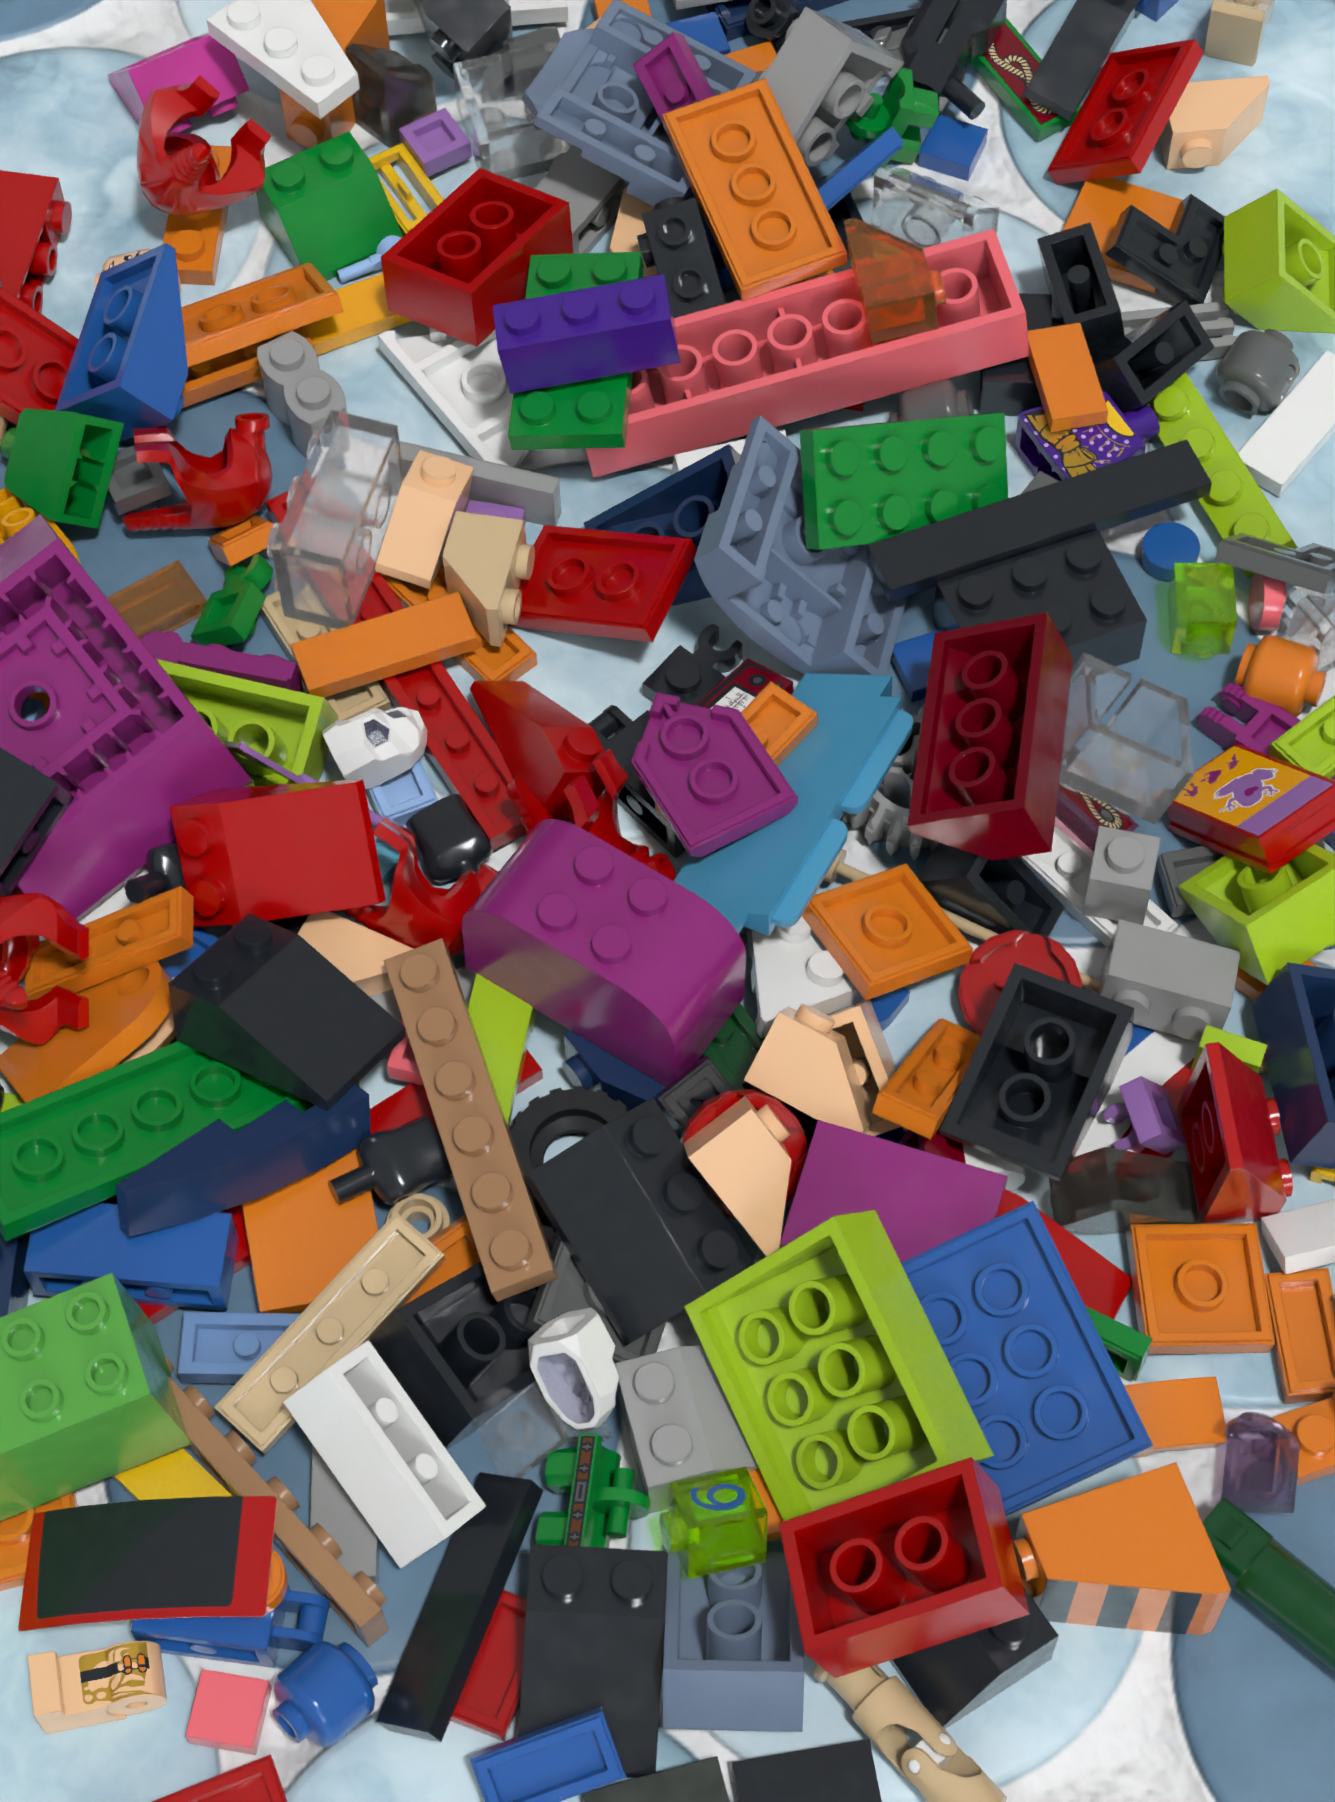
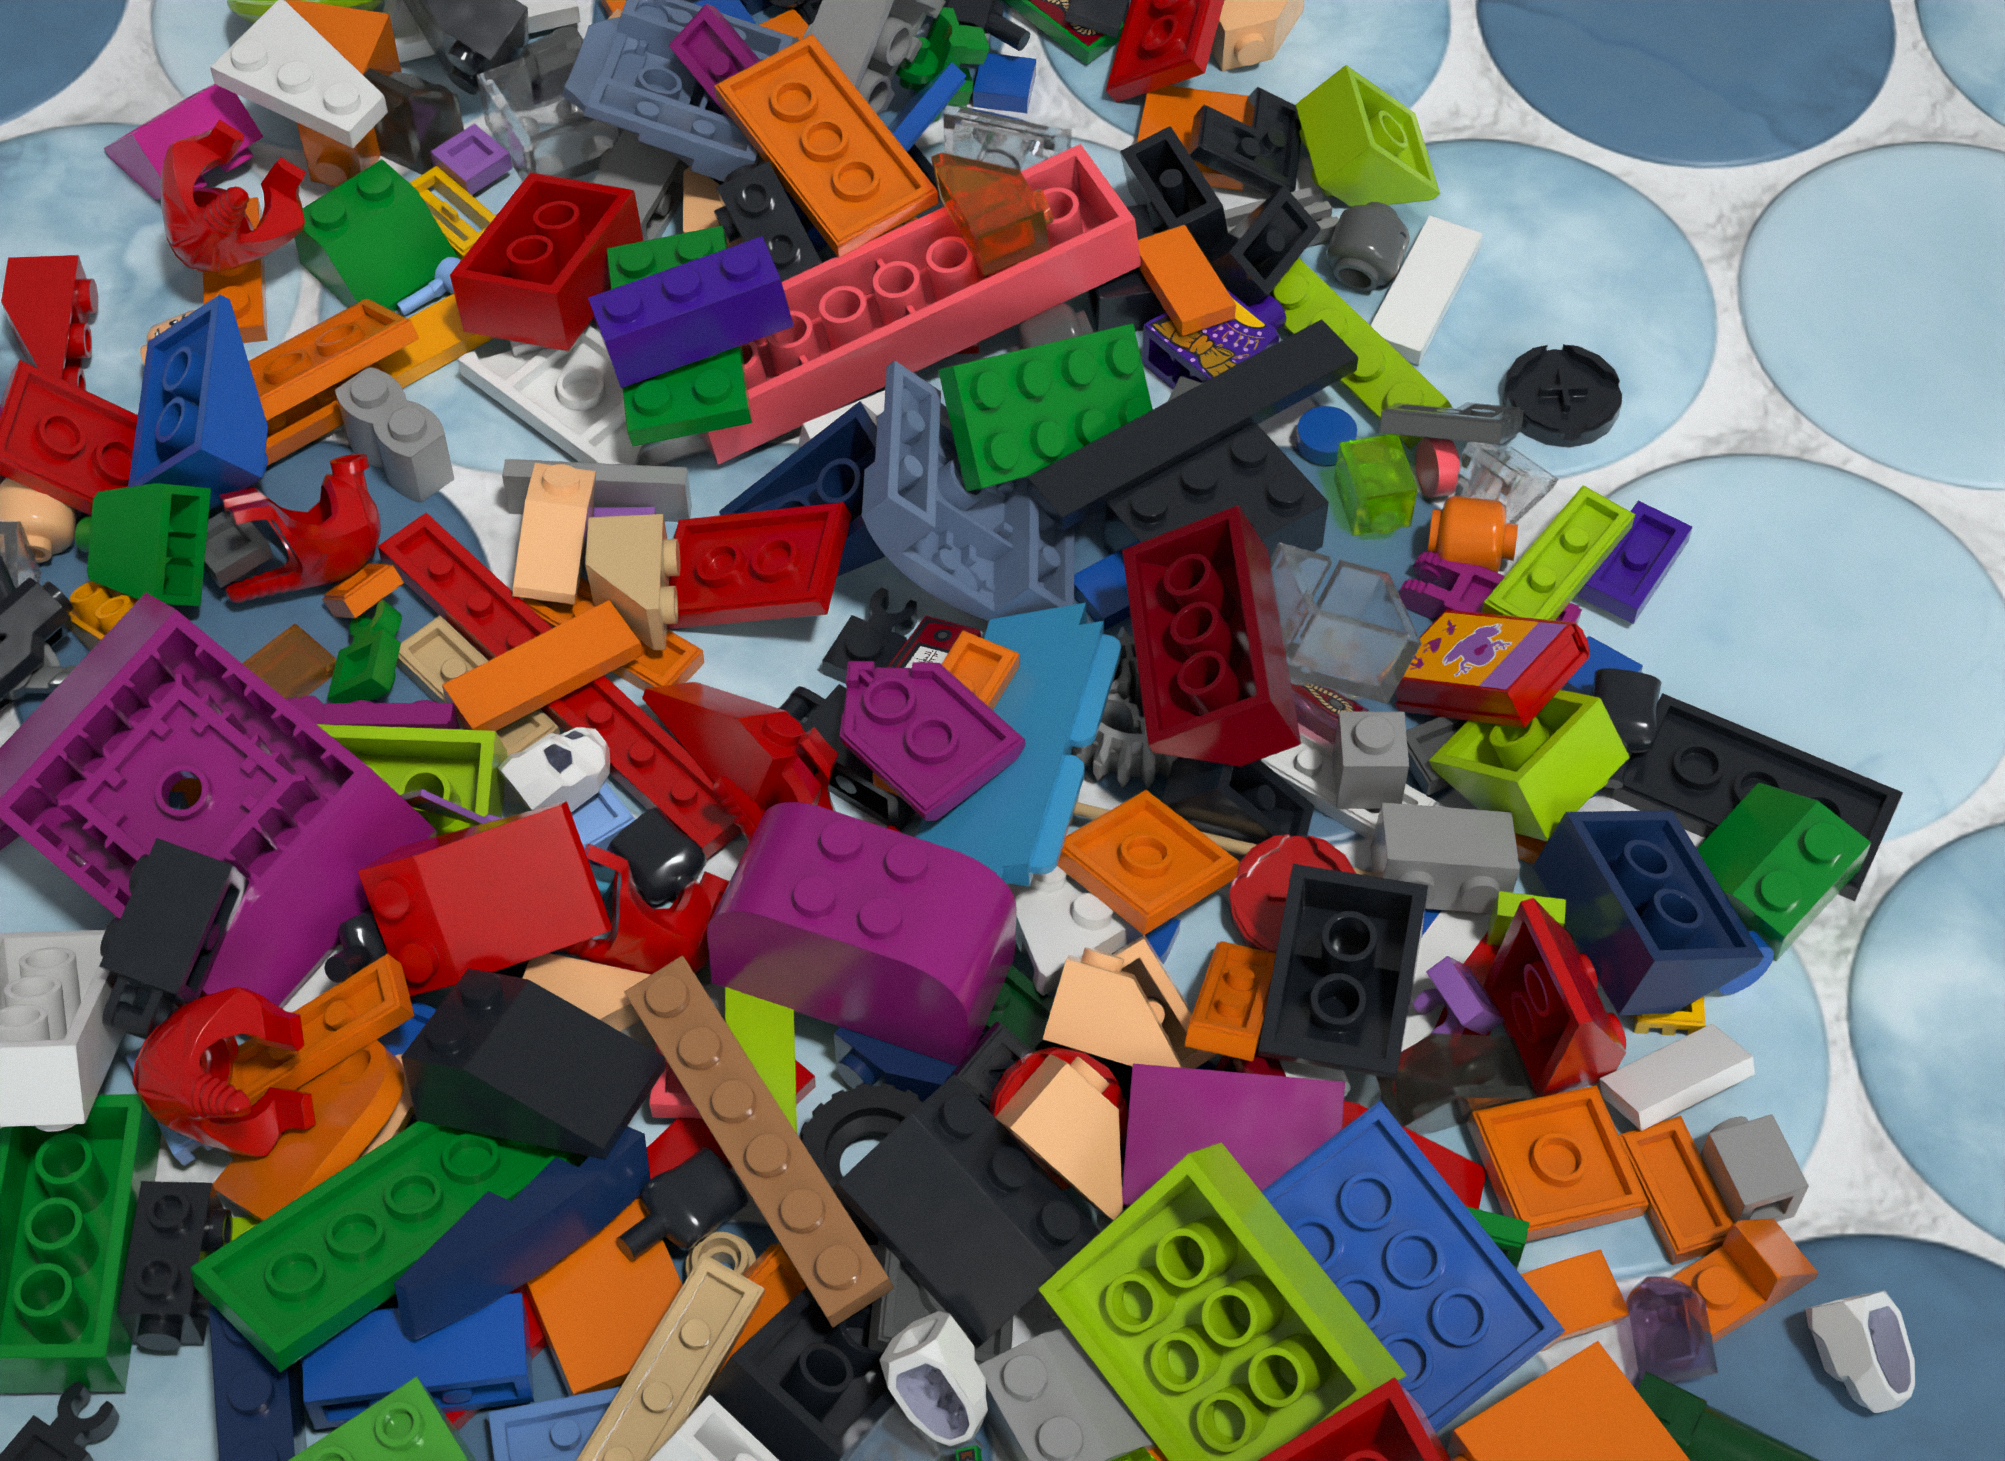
camera: 15 degrees left, 5 degrees down
(336, 520) = (465, 547): clear brick -> none

